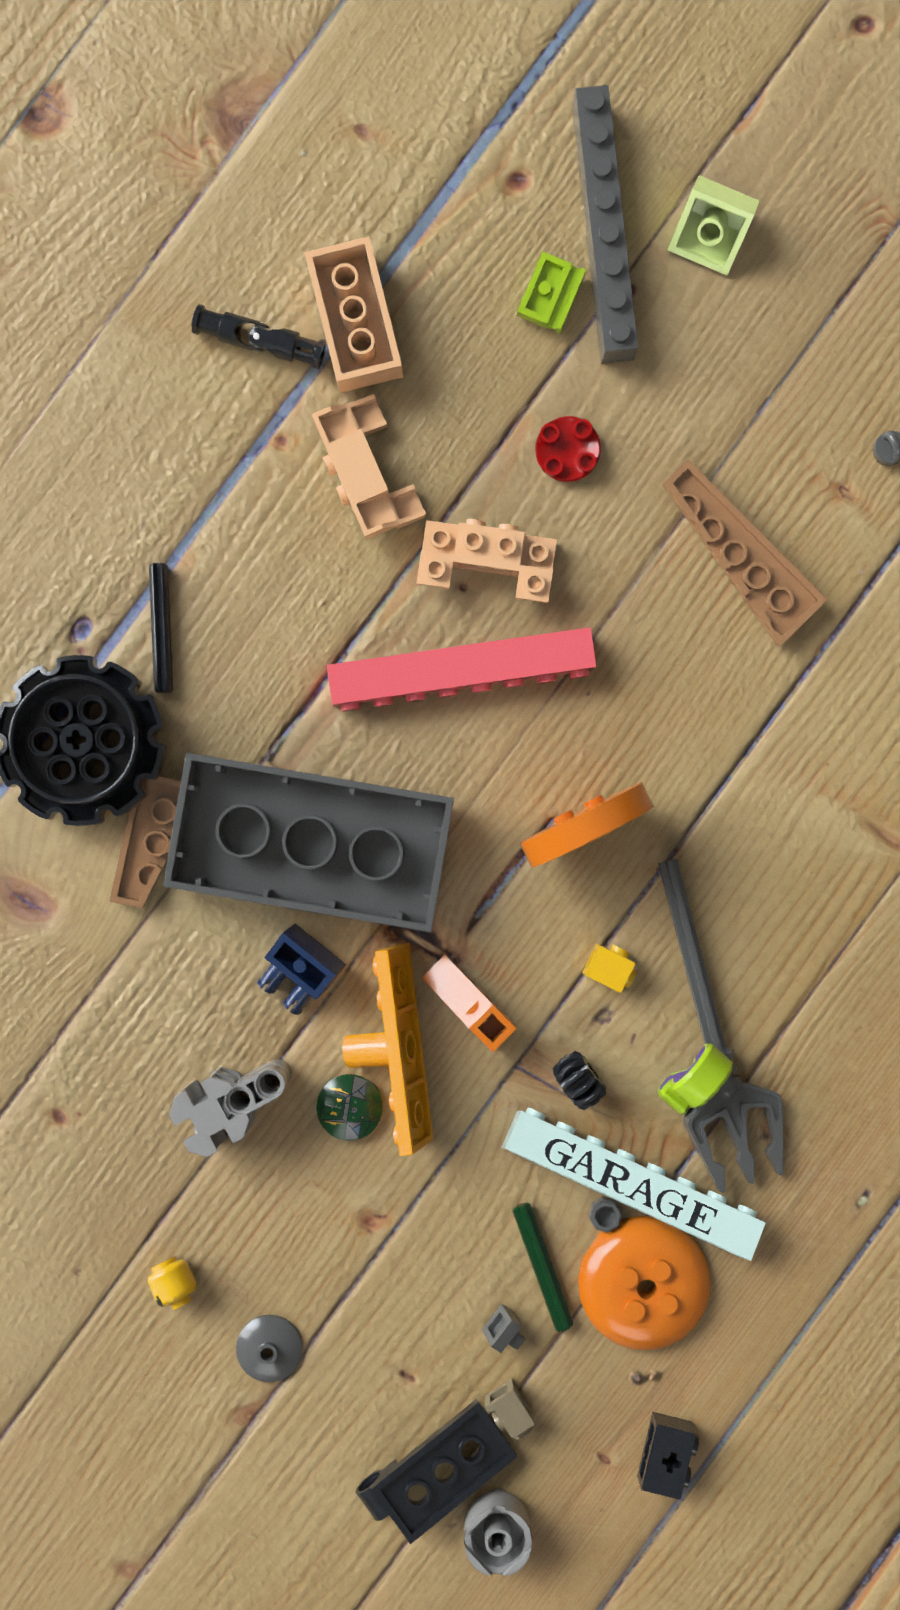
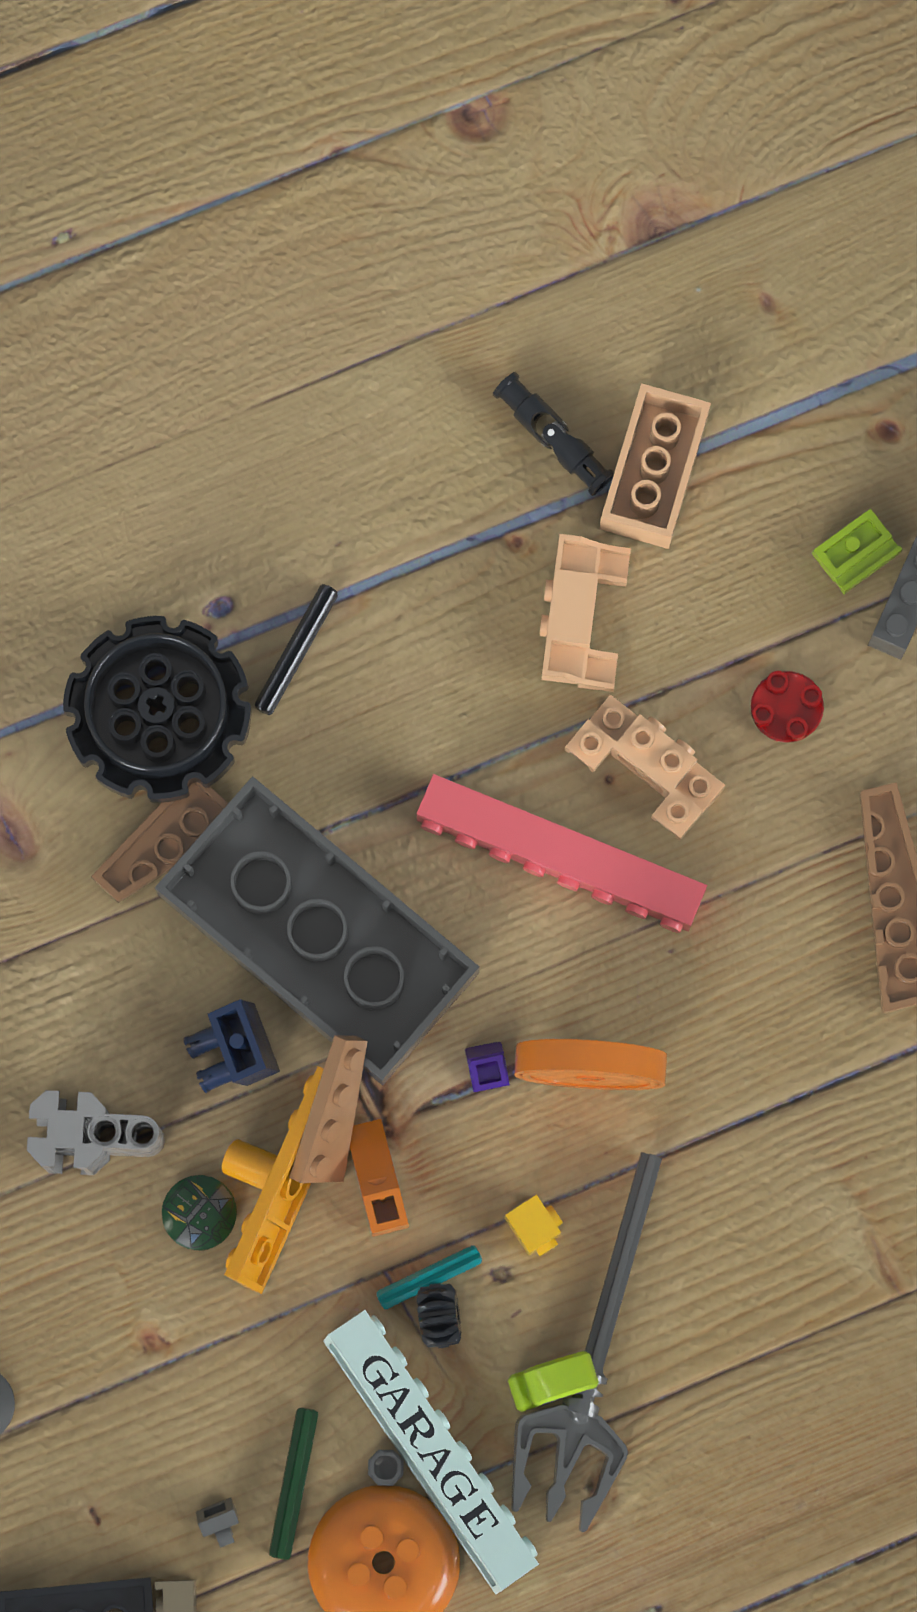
camera: 30 degrees right, 10 degrees down
(409, 983) = (330, 1123): none -> medium nougat wing
(501, 865) = (487, 1066): none -> dark purple slope
(552, 1052) = (435, 1273): none -> teal axle

